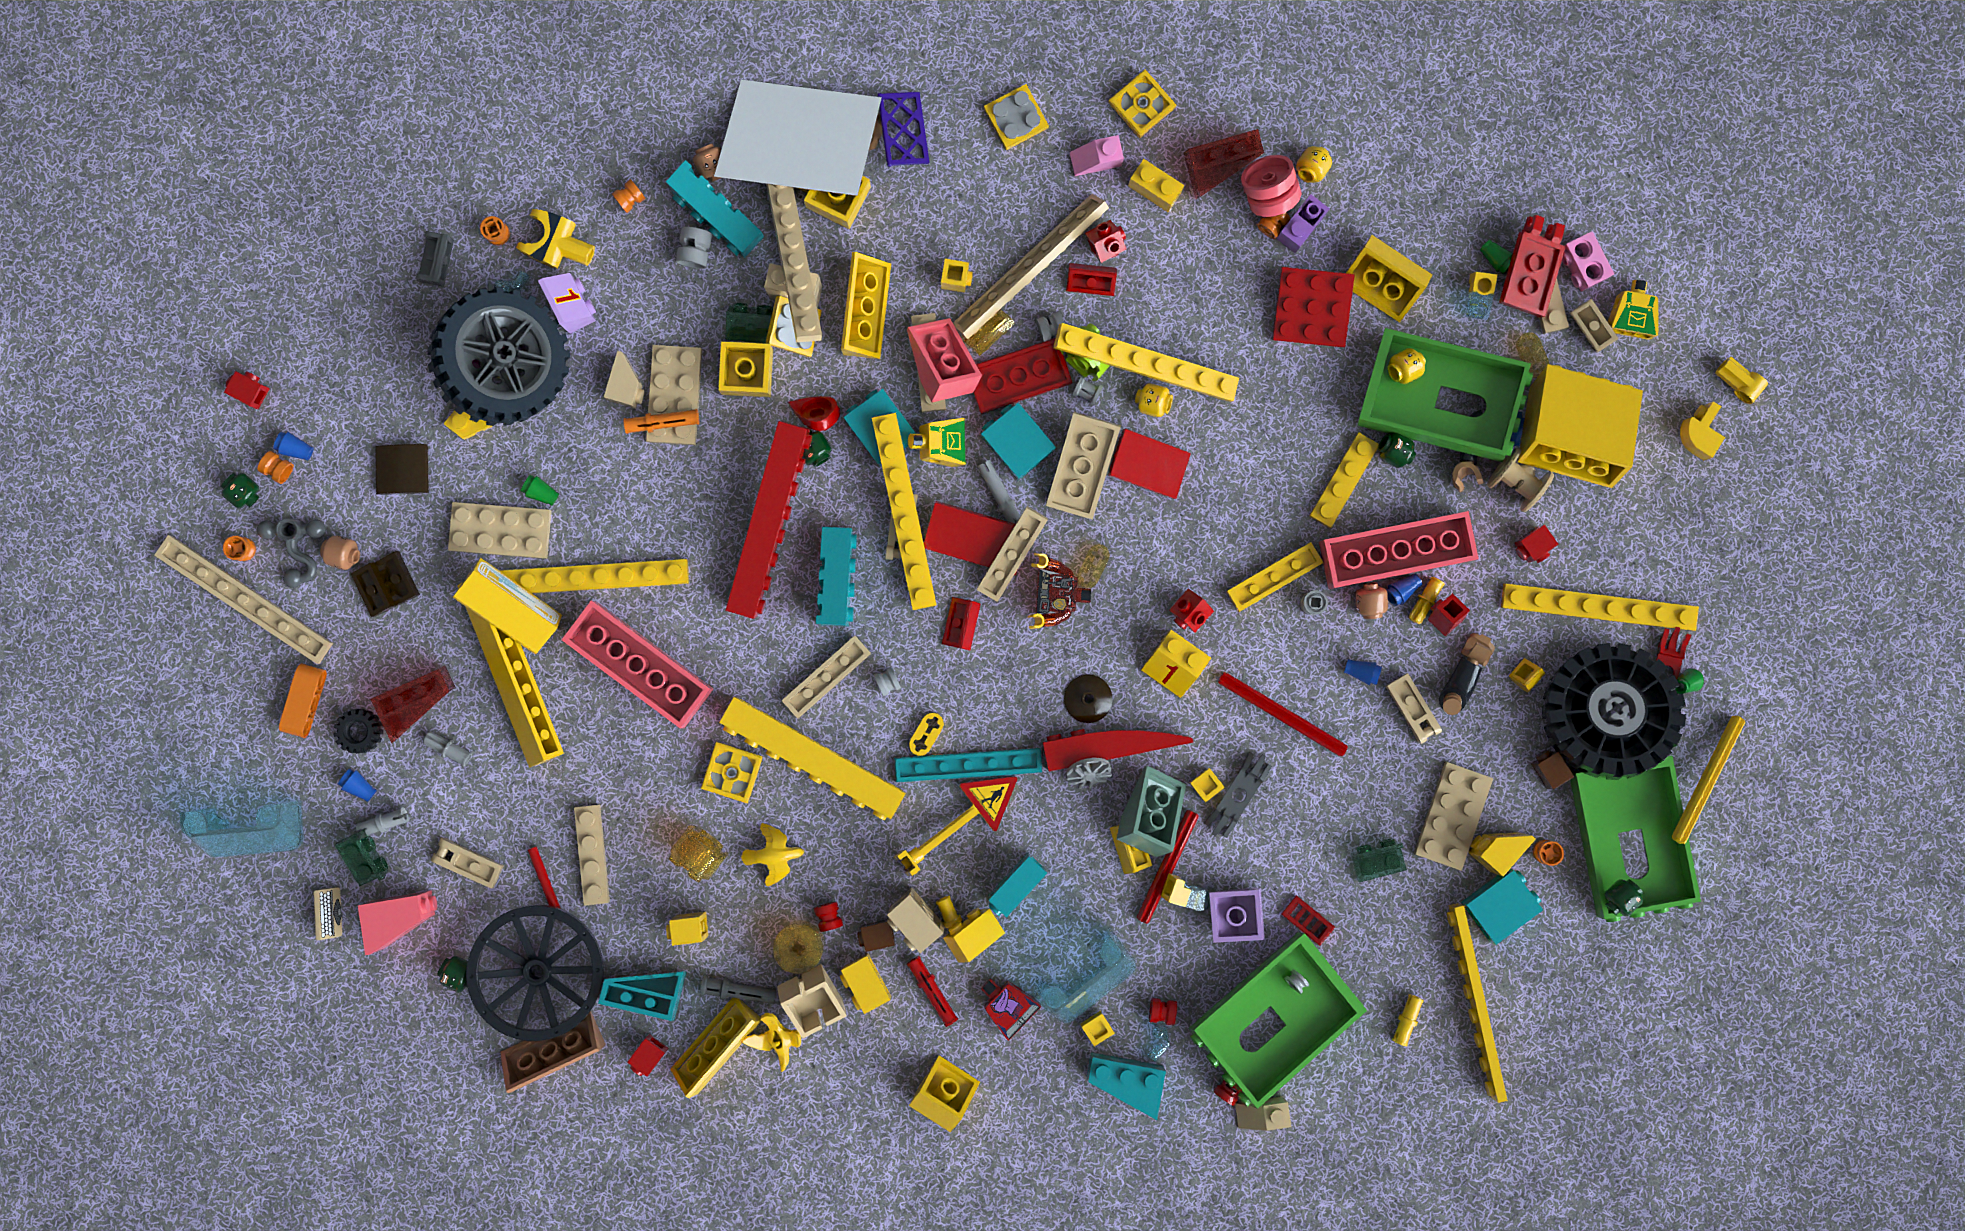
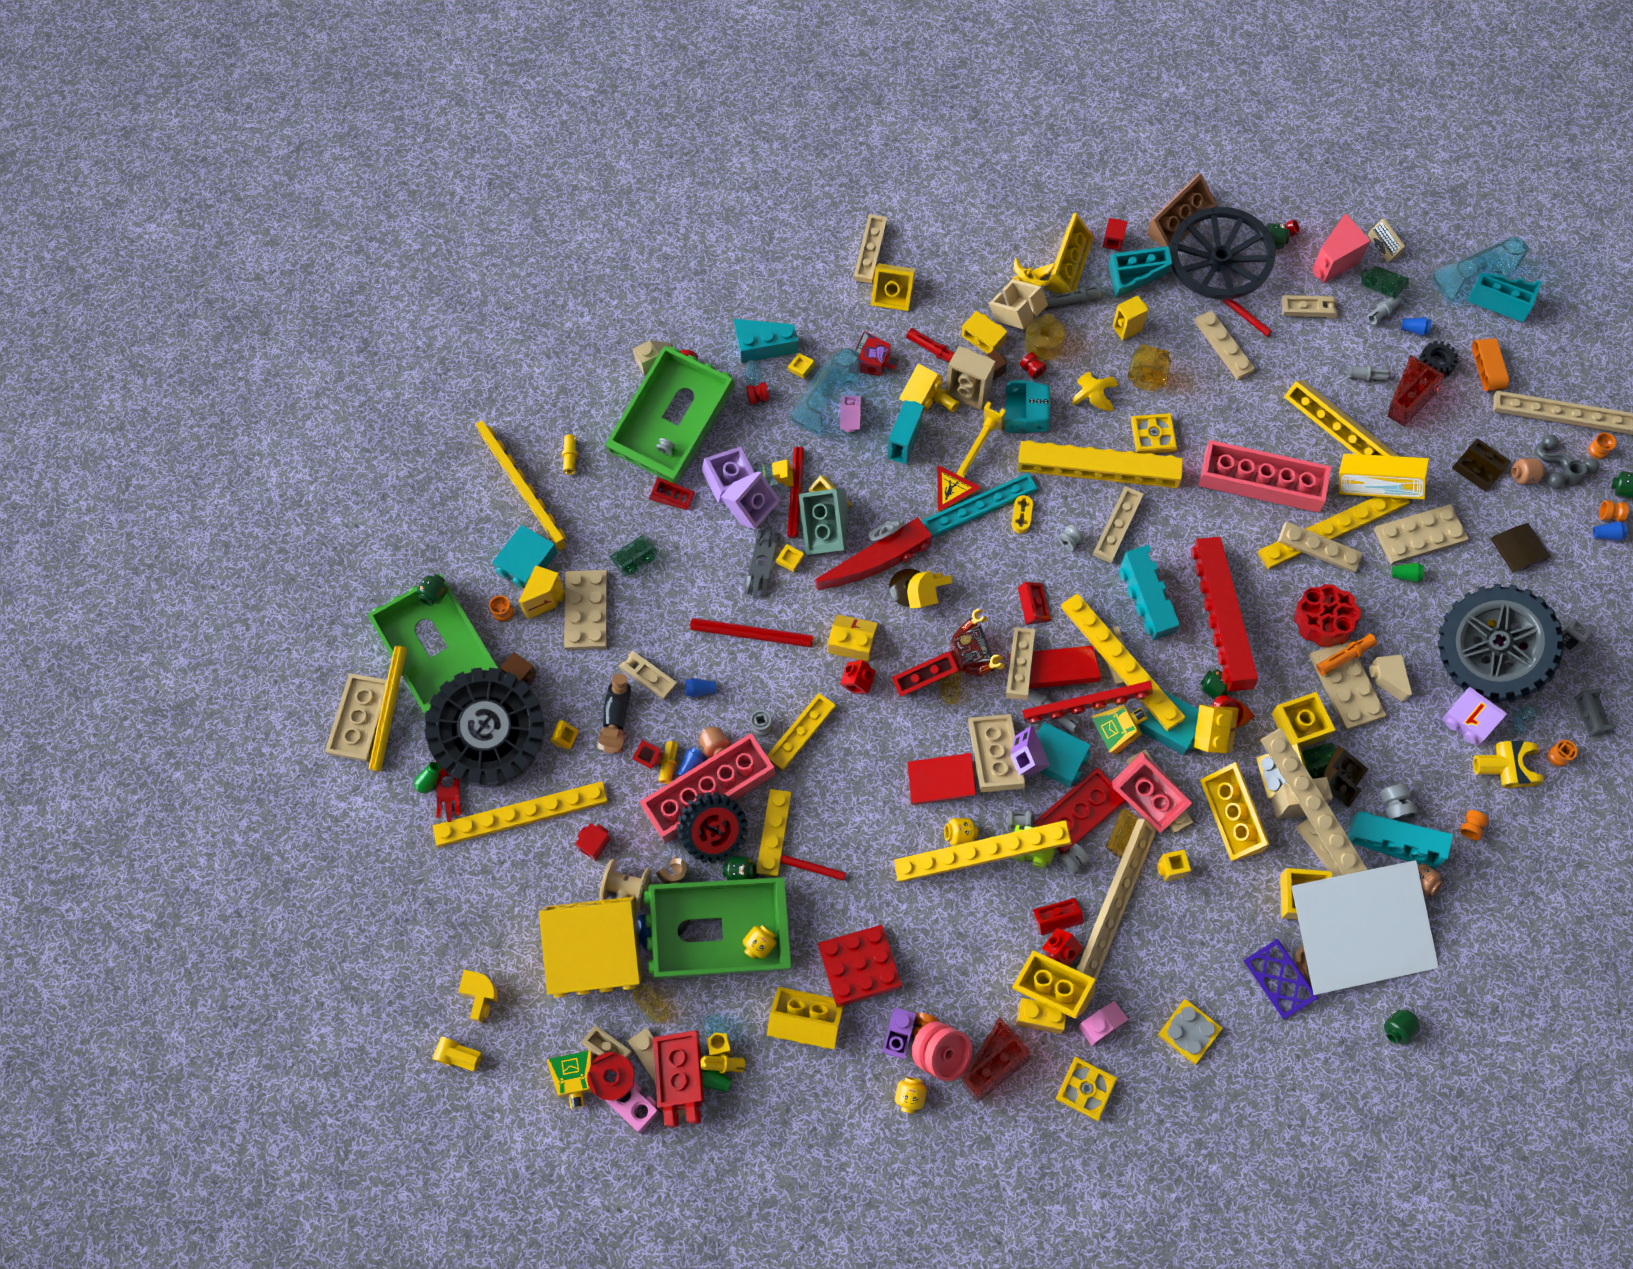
camera: 170 degrees right, 20 degrees down
(233, 777) = (1504, 295): none -> teal wedge
(403, 349) = (1574, 635): none -> light grey slope
(428, 978) = (1293, 226): none -> red hinge
(621, 556) = (1319, 547): none -> tan plate
(649, 497) = (1323, 614): none -> red connector
(737, 295) = (1343, 776): none -> dark brown slope
(811, 36) = (1401, 1027): none -> dark green head
(843, 394) = (1215, 728): none -> yellow slope
(860, 863) = (1027, 407): none -> teal piece
(948, 1161) = (870, 248): none -> tan plate
(976, 476) = (1096, 701): none -> red plate
(1054, 444) = (1028, 753): none -> medium lavender slope
(1065, 942) = (850, 413): none -> bright pink slope
(1077, 686) = (922, 588): none -> yellow brick
(1119, 580) = (926, 673): none -> red brick
(1136, 200) = (1055, 985): none -> yellow slope
(1228, 867) = (751, 499): none -> lavender slope
(1318, 428) = (826, 871): none -> red bar
(1410, 511) = (710, 843): none -> wheel
(1486, 263) = (722, 1063): none -> yellow axle
(1612, 279) = (623, 1082): none -> red plate
(1742, 785) = (357, 718): none -> tan plate

